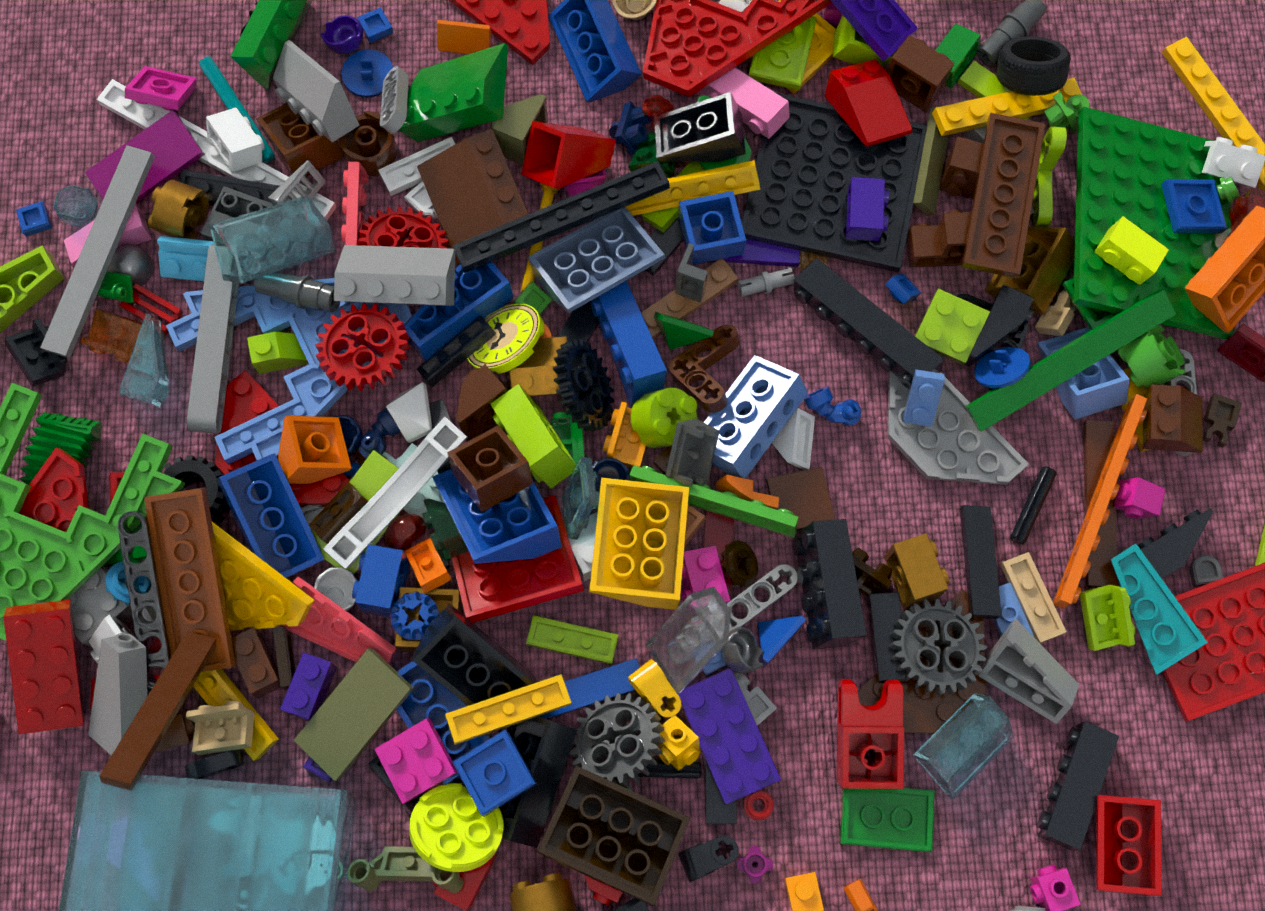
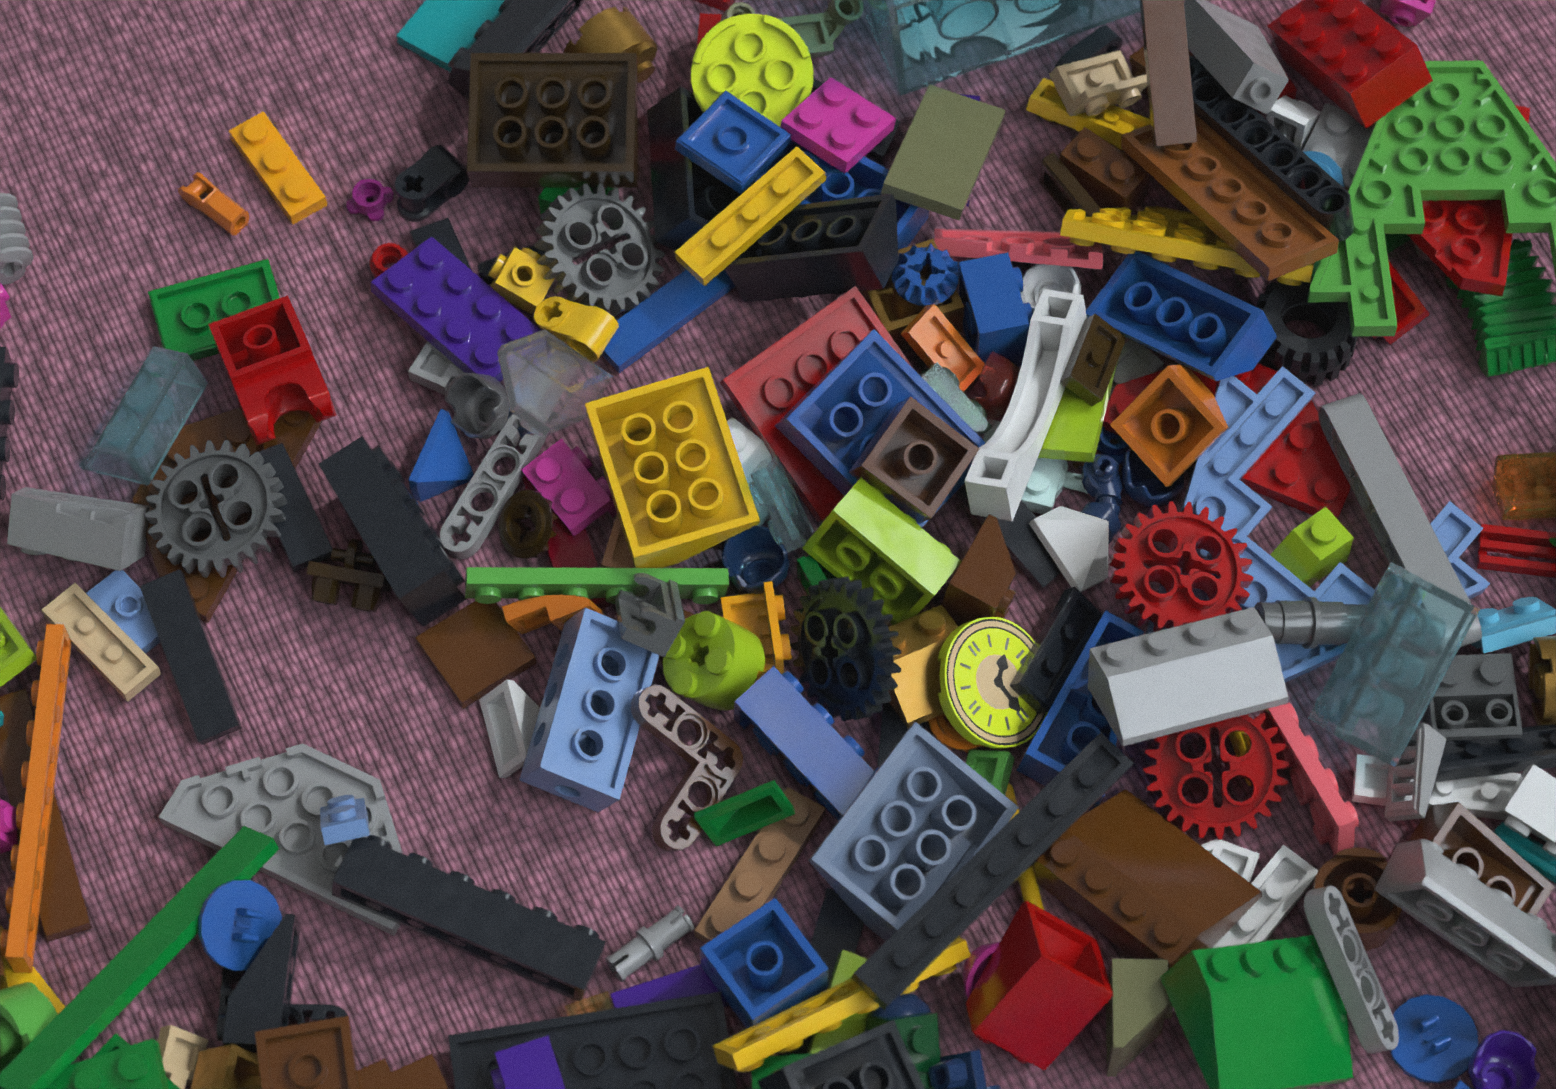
camera: 160 degrees right, 10 degrees down
(147, 370) = (1468, 461): clear light blue slope -> none
(308, 687) = (1020, 173): dark purple brick -> none
(572, 639) = (720, 355): lime tile -> none
(690, 279) = (757, 856): dark grey panel -> none
(844, 412) = (499, 792): blue arm -> none
(902, 289) = (432, 1012): blue plate -> none
(916, 570) = (277, 595): pearl gold brick -> none
(951, 326) = (338, 967): lime brick -> none
(1033, 505) = (135, 772): black axle -> none
(1093, 389) = (85, 955): medium blue slope -> none

